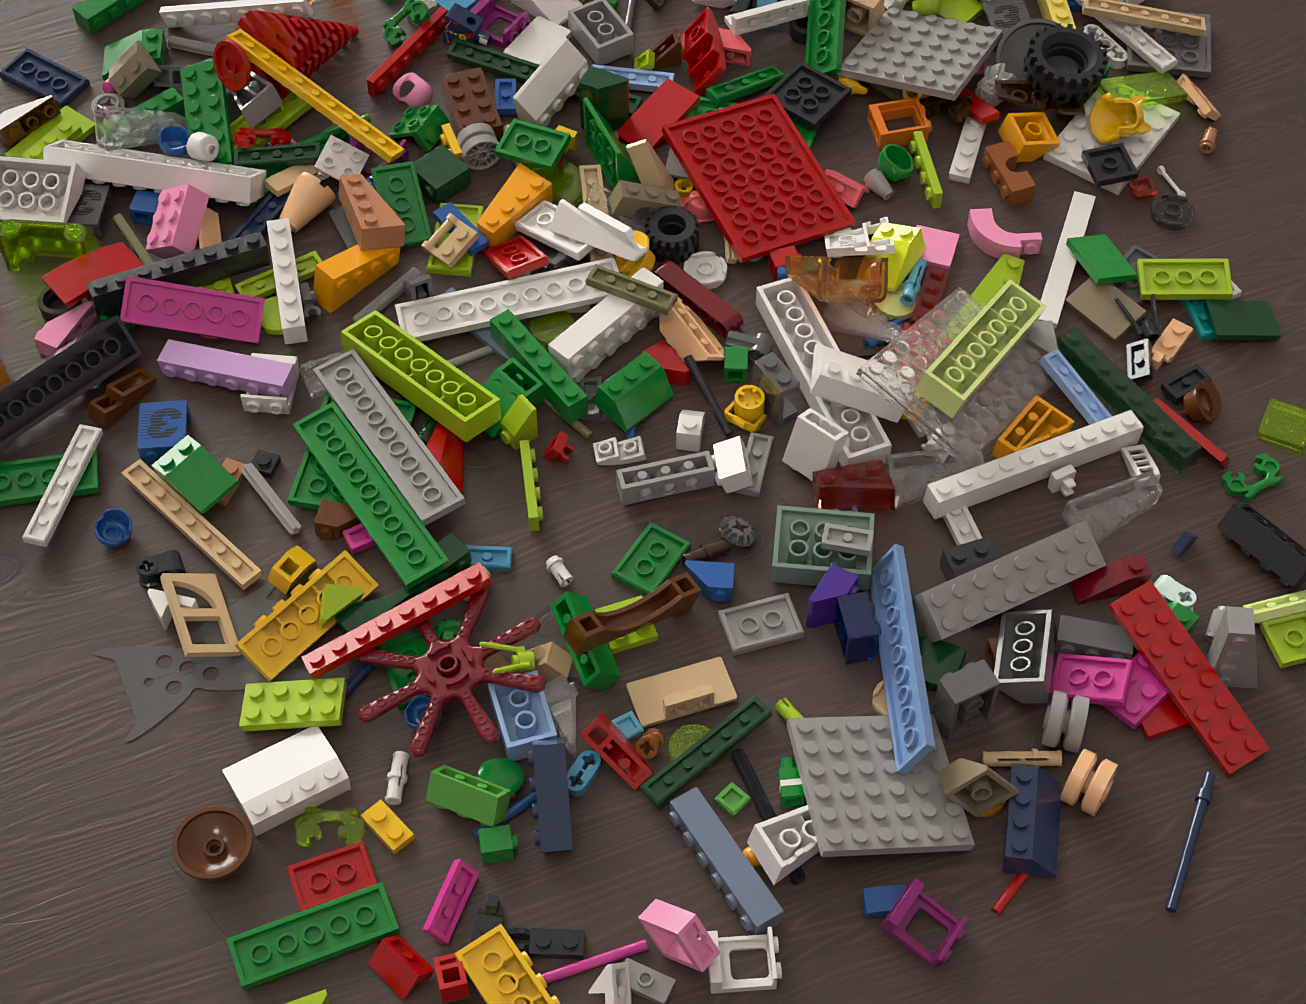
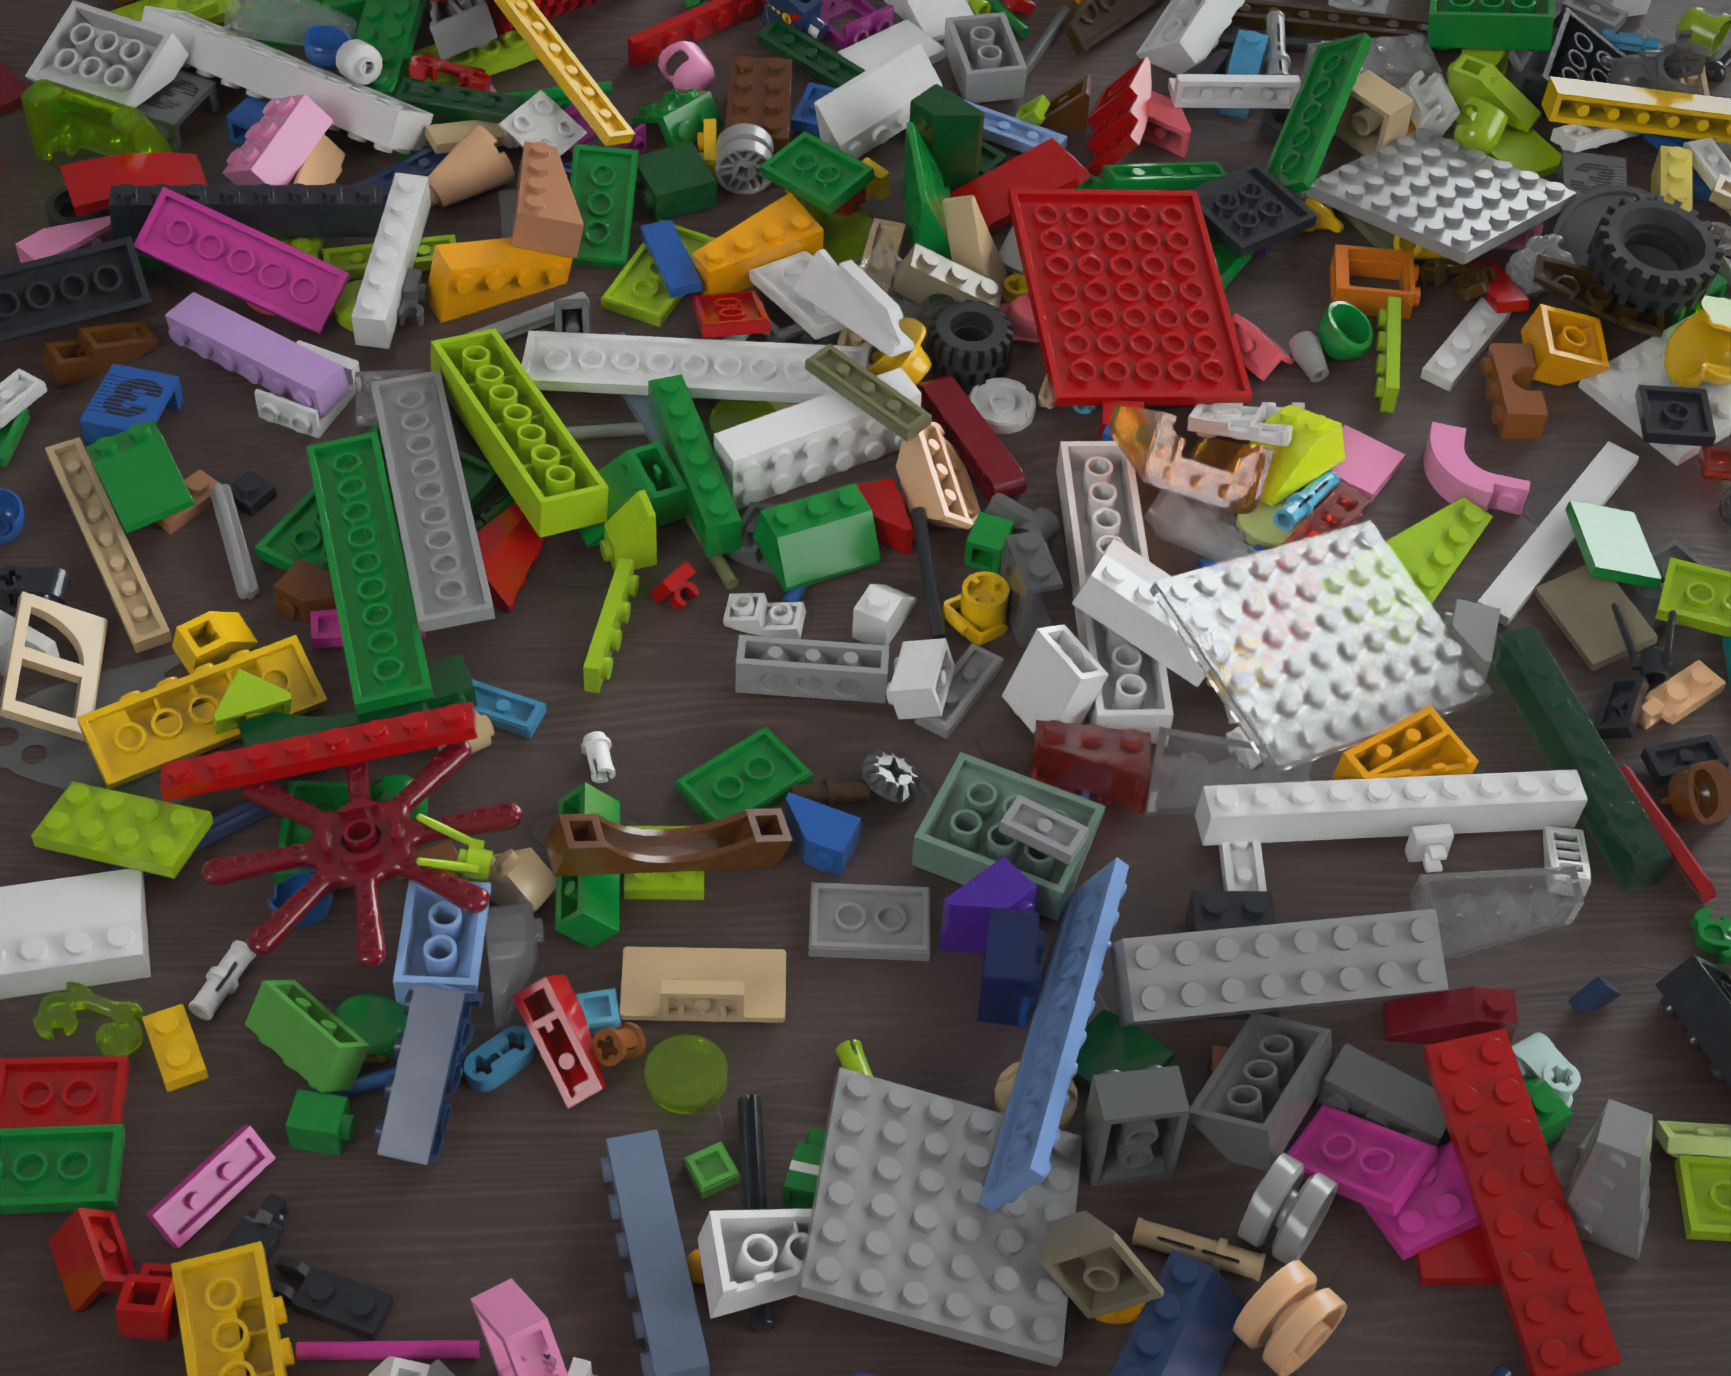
camera: 15 degrees right, 5 degrees down
(131, 239) = (212, 152): olive tile -> none
(456, 243) = (650, 275): tan plate -> none
(705, 751) = (699, 1082): dark green tile -> none
(980, 348) = (1359, 609): yellowish green brick -> none
(1074, 387) = (1497, 711): light blue plate -> none

